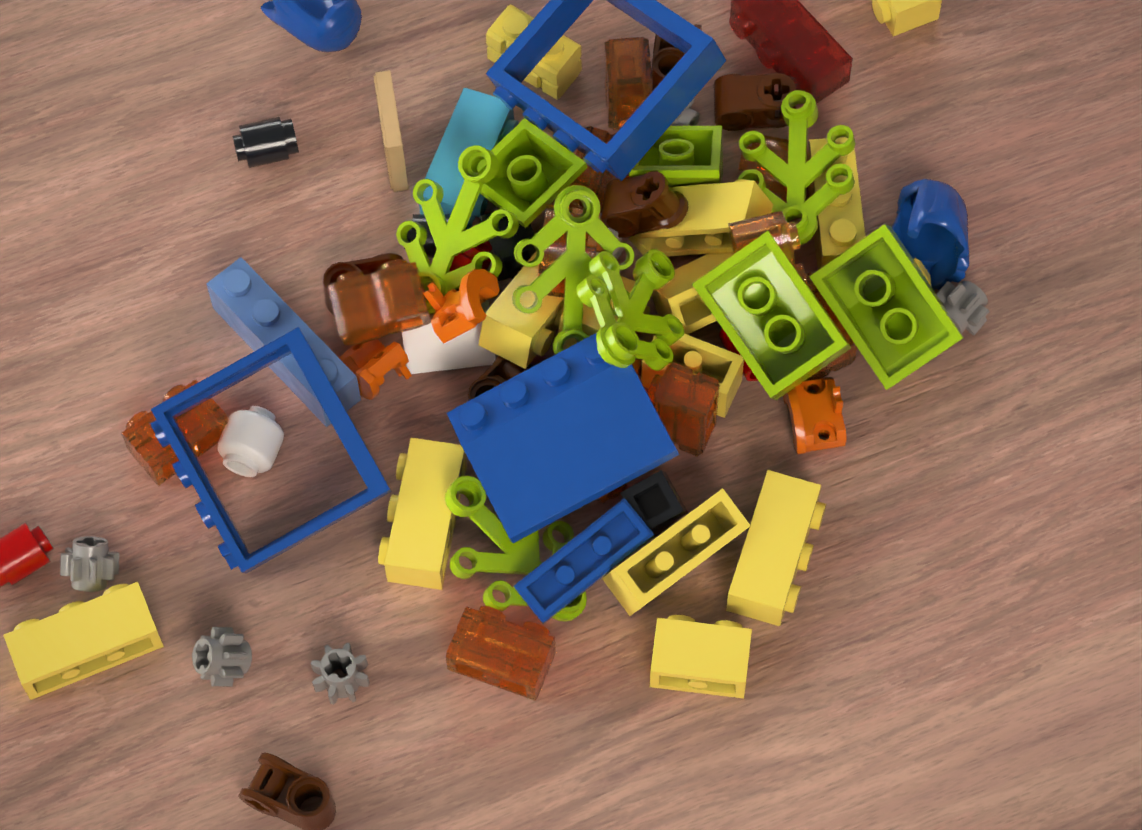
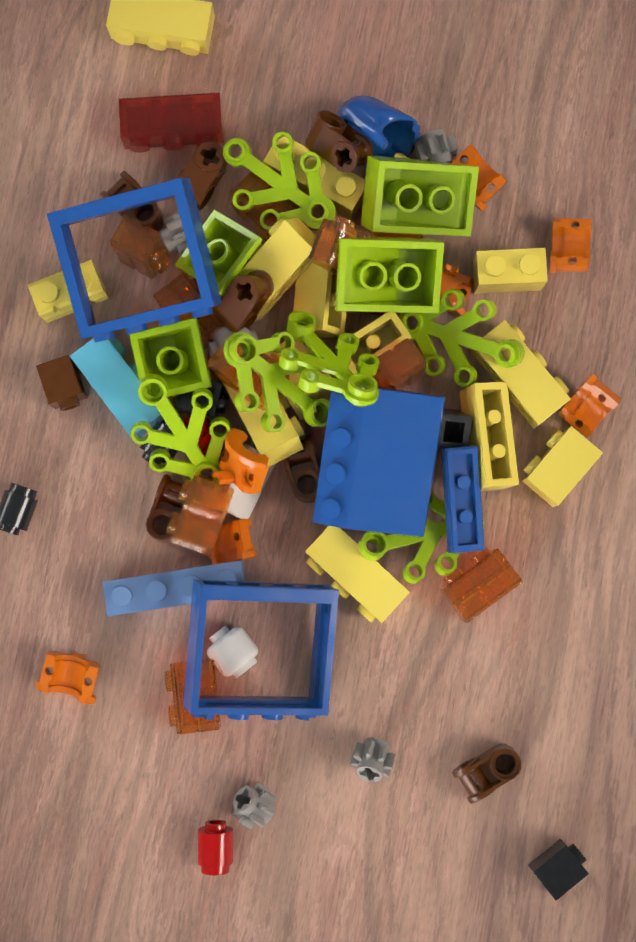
camera: 55 degrees left, 20 degrees up
(82, 639) = (302, 839): light yellow brick -> none
(117, 293) = (69, 676): none -> orange piece
(335, 686) = (436, 699): light grey gear -> none
(390, 131) = (70, 424): tan tile -> none
(430, 103) = (62, 383): none -> reddish brown brick
(753, 410) = (454, 336): none -> lime plant
(793, 644) = (589, 405): none -> orange piece
(883, 463) = (509, 270): none -> light yellow brick
(886, 193) = (336, 142): none -> reddish brown piece
(963, 512) = (570, 245): none -> orange piece
(965, 364) = (486, 176): none -> orange piece

